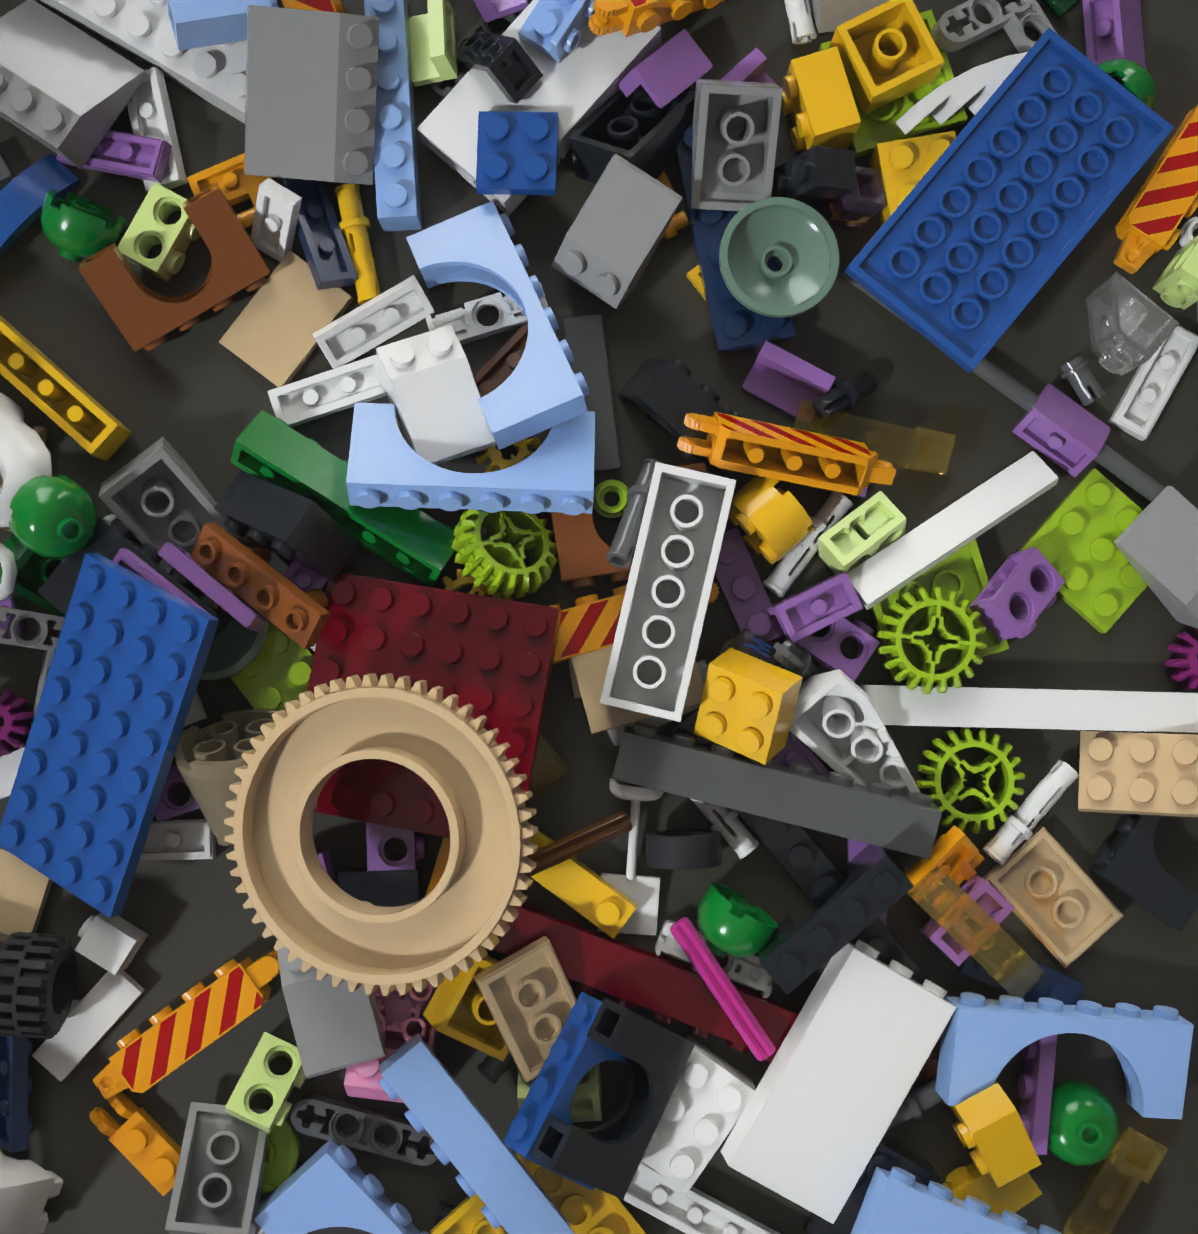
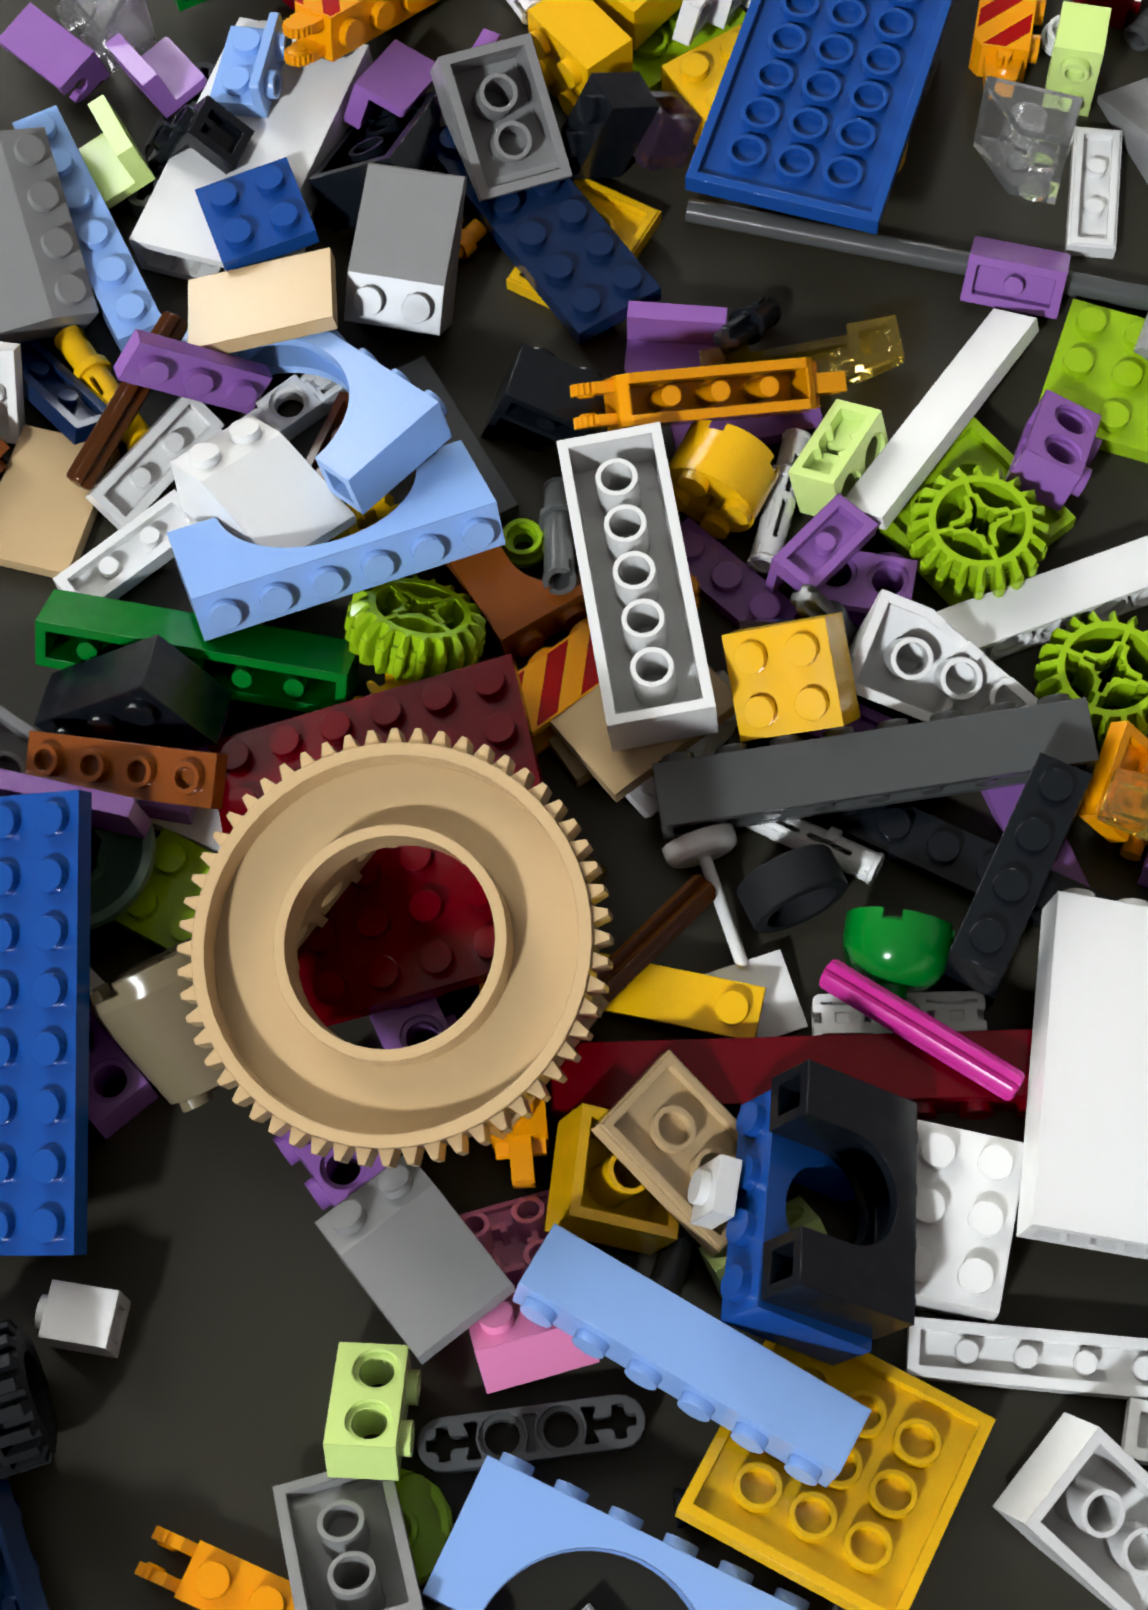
camera: 20 degrees left, 20 degrees down
(88, 1023) = (89, 1449): white tile -> none
(179, 840) = (132, 1156): white tile -> none
(189, 1028) = (234, 1387): light orange hinge -> none
(368, 271) = (117, 416): none -> reddish brown axle
(420, 274) = (192, 371): none -> medium lavender plate
(492, 236) = (264, 303): none -> tile
(536, 1054) = (714, 1191): none -> white plate
(795, 239) = (607, 184): sand green dish -> none
(1081, 378) = (1011, 218): dark grey pin -> none

